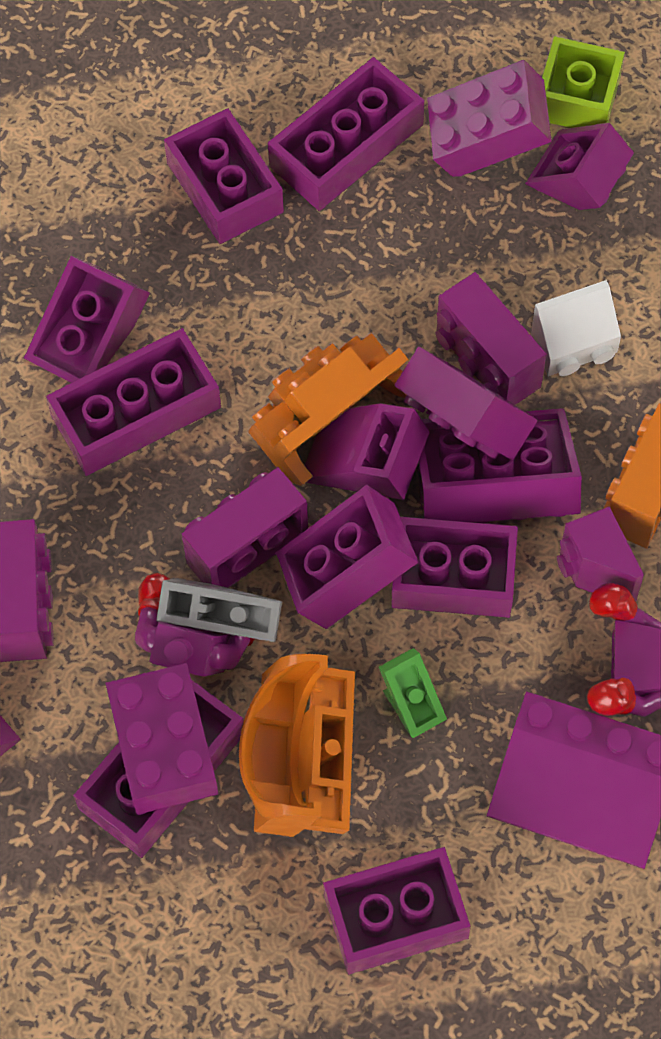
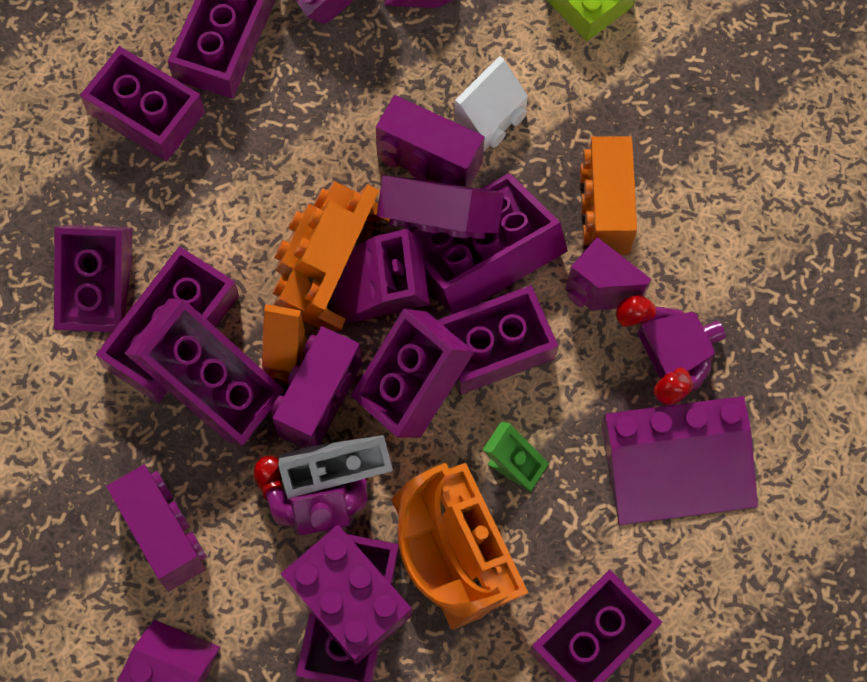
camera: 30 degrees left, 5 degrees up
(141, 459) = (205, 371): none -> magenta brick
(233, 463) = (282, 342): none -> orange slope

